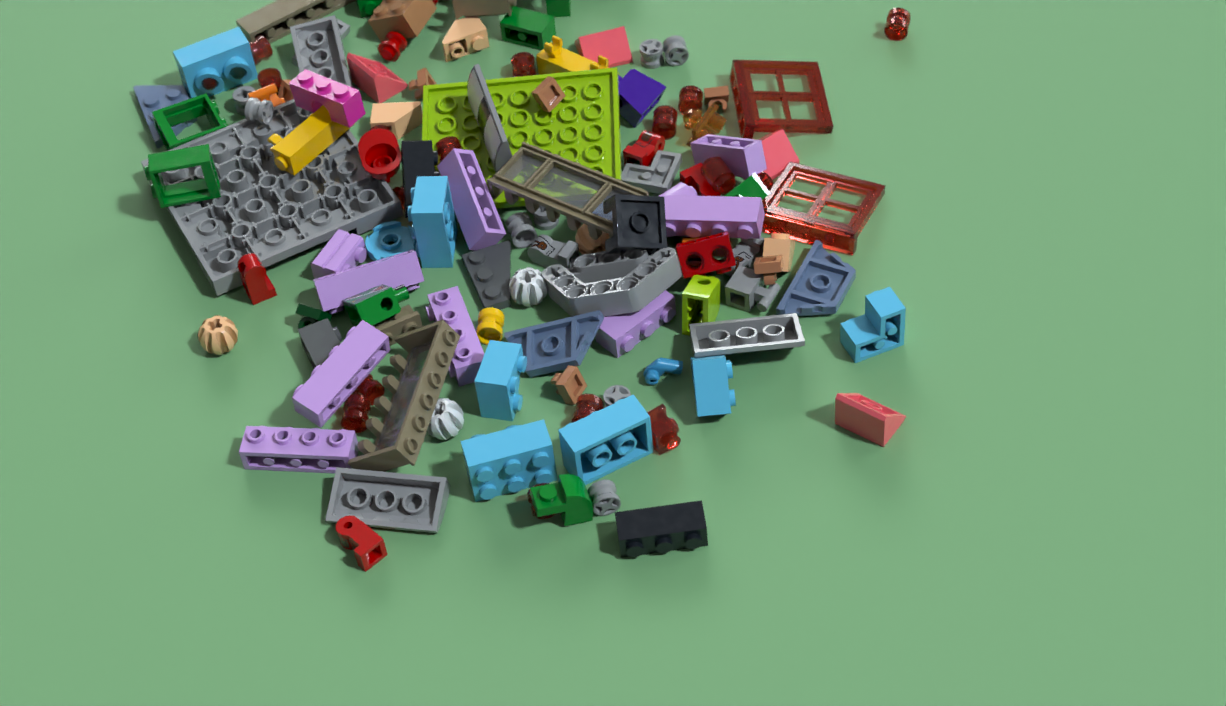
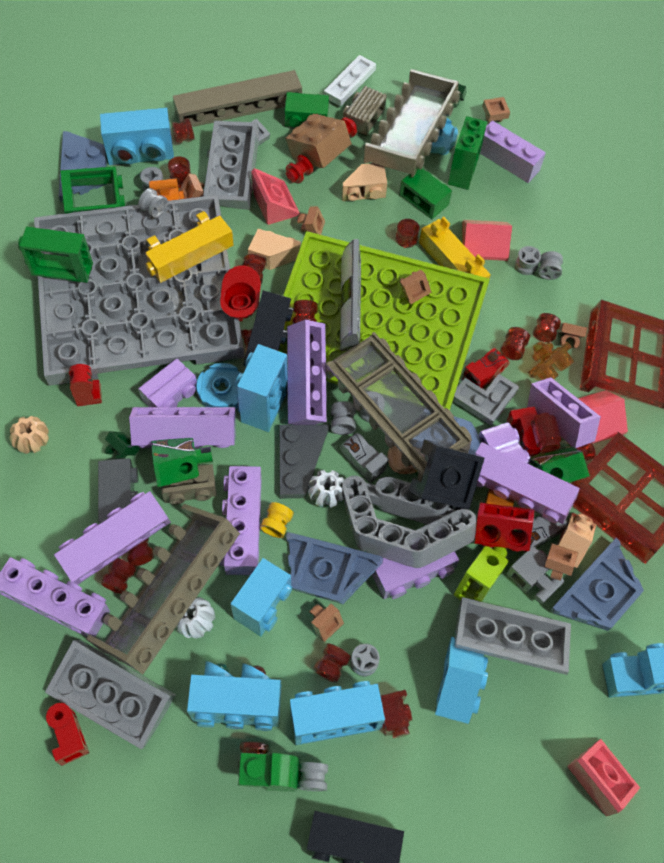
camera: 10 degrees right, 15 degrees up
(341, 101) = (207, 210): dark pink arch -> none
(638, 96) = (500, 306): dark purple torso -> none
(659, 367) = (420, 631): dark azure arm -> none

